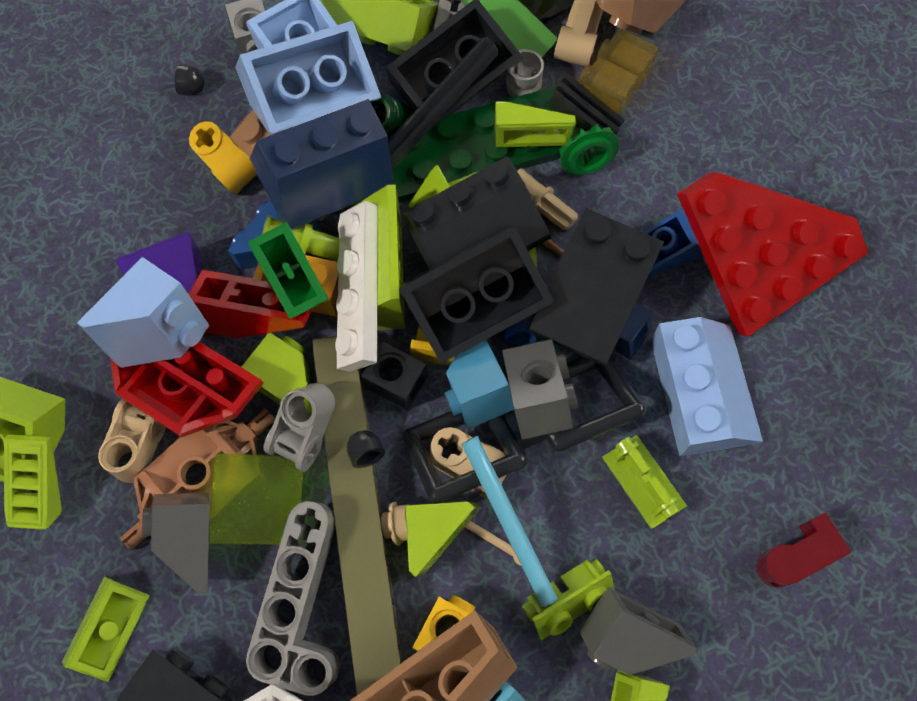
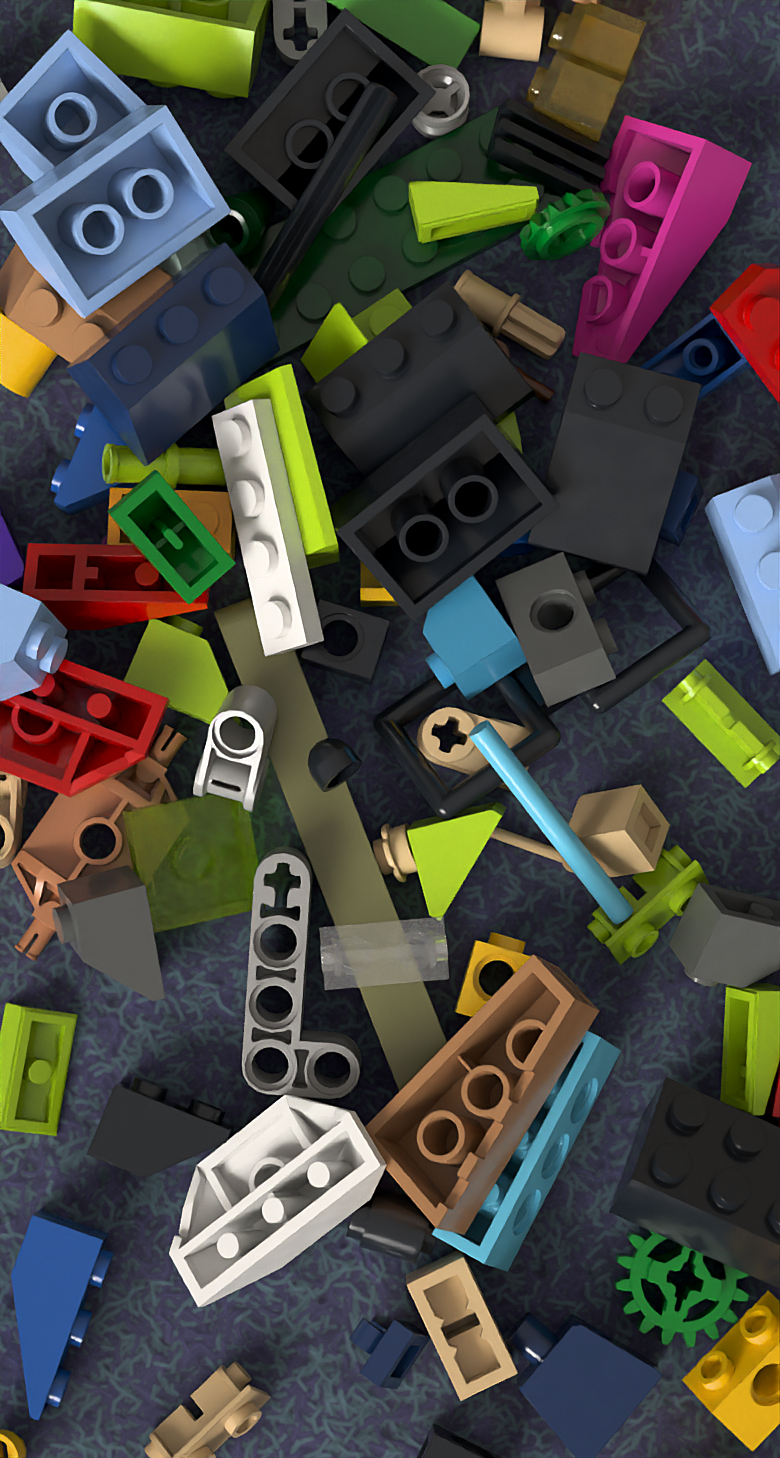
camera: 15 degrees left, 15 degrees up
(368, 591) = (384, 953): none -> clear hinge
(559, 539) = (621, 829): none -> tan panel
(654, 152) = (665, 212): none -> dark pink wedge

